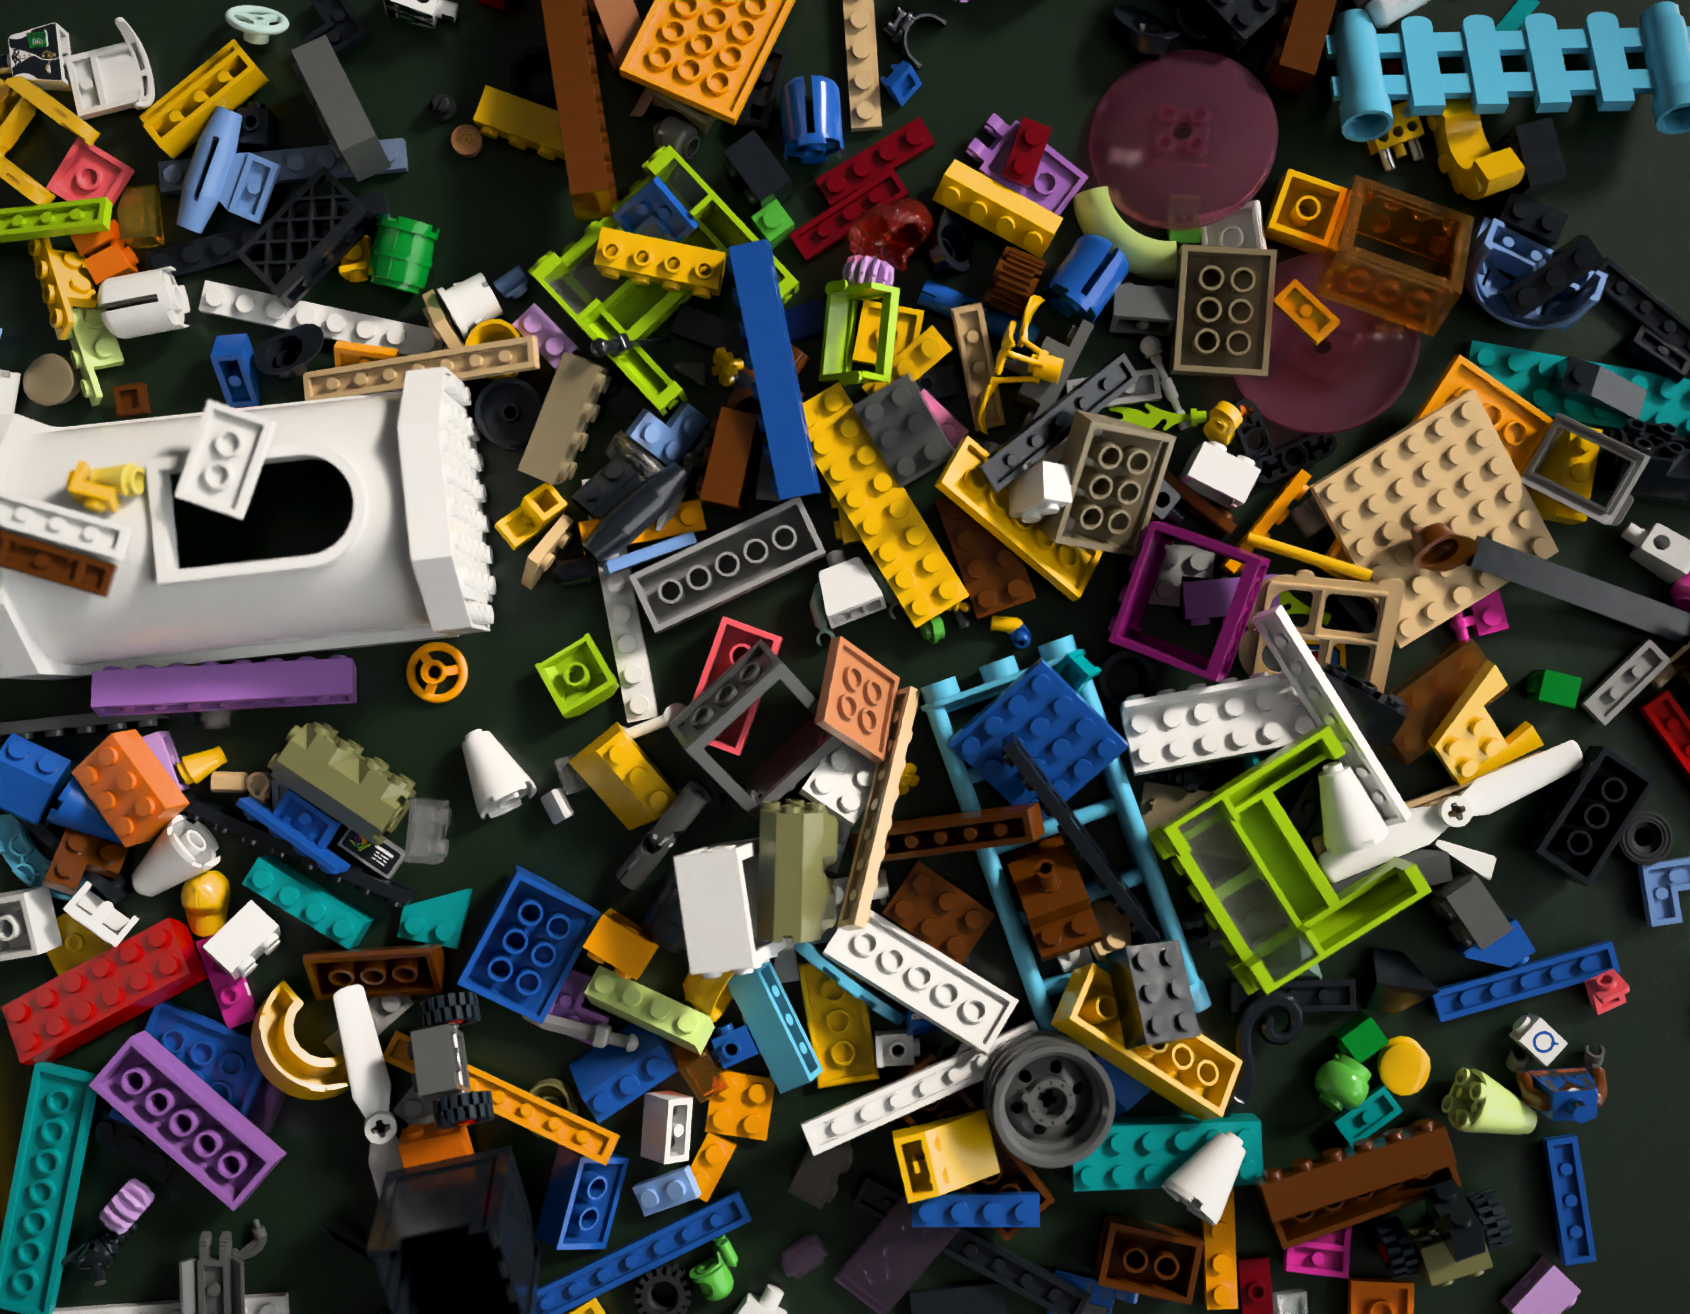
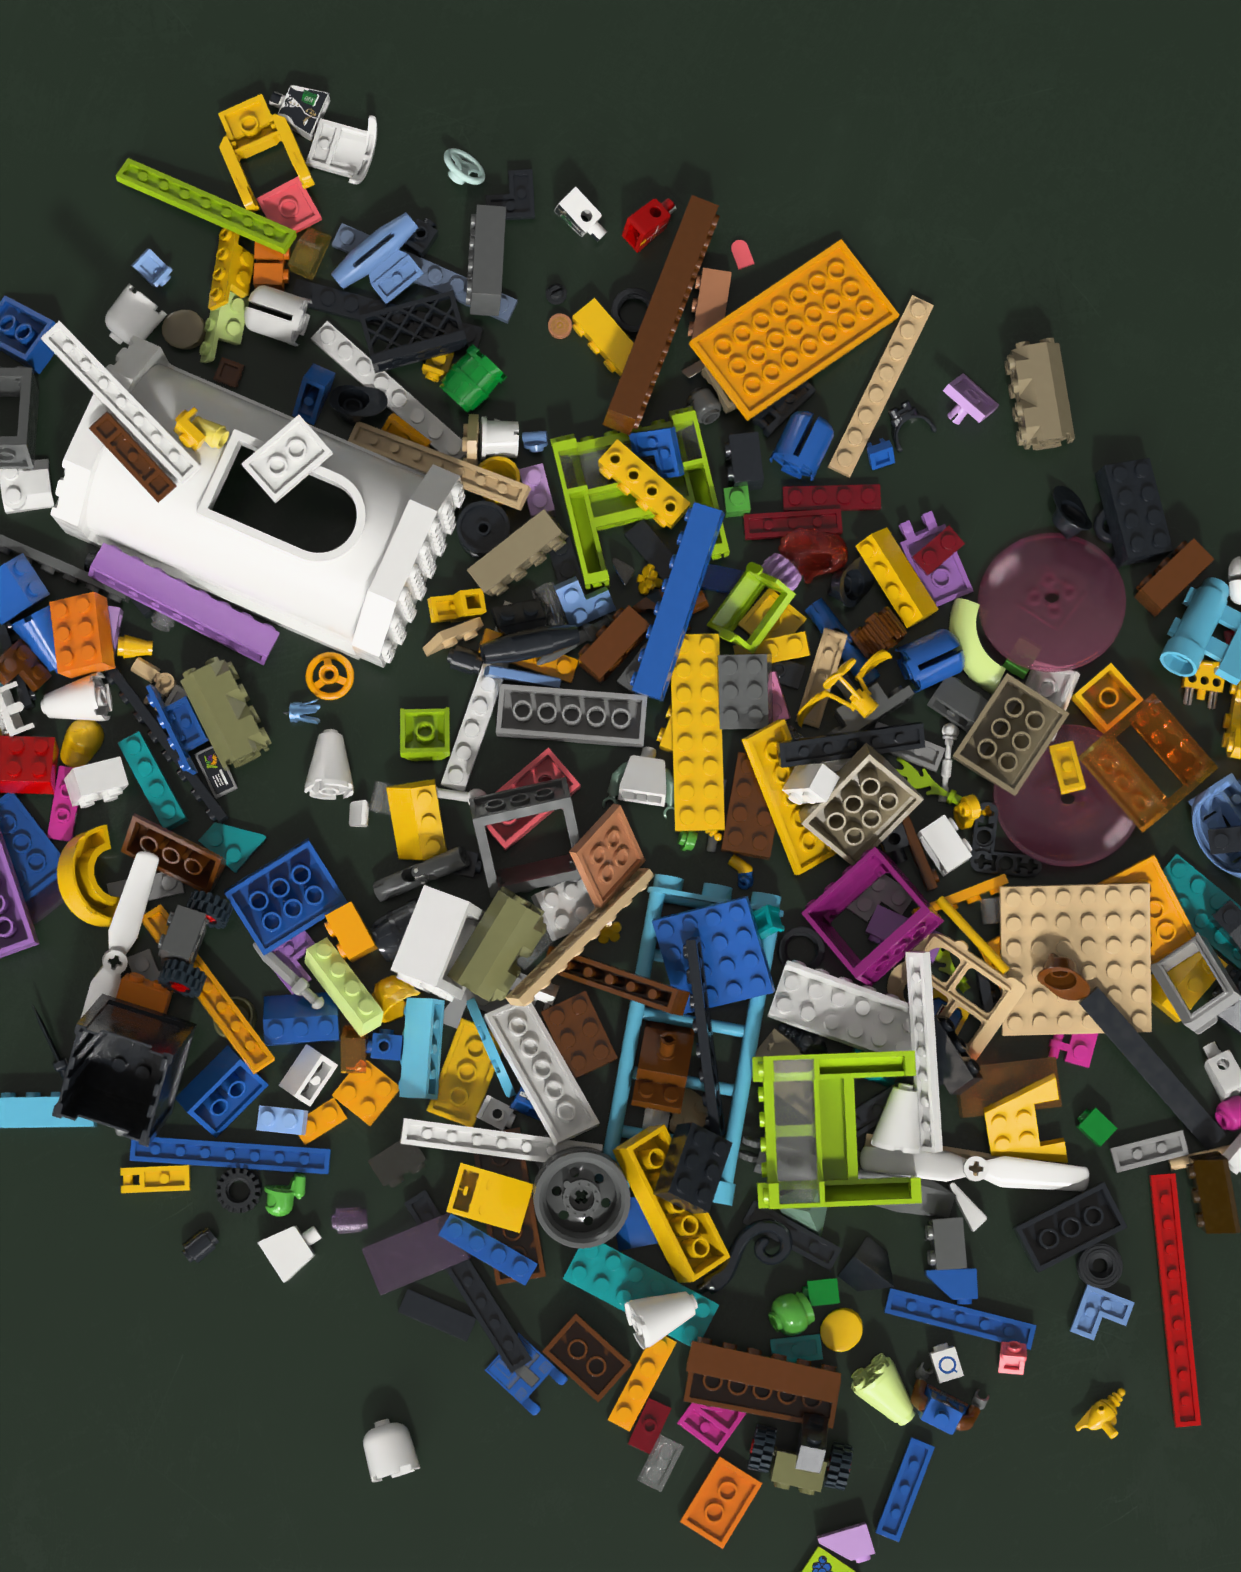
camera: 30 degrees right, 5 degrees down
(185, 110) = (388, 198): yellow brick -> none
(423, 730) = (298, 709): none -> flat silver piece
(427, 830) = (262, 779): clear brick -> none
(621, 345) = (585, 525): black sword -> none

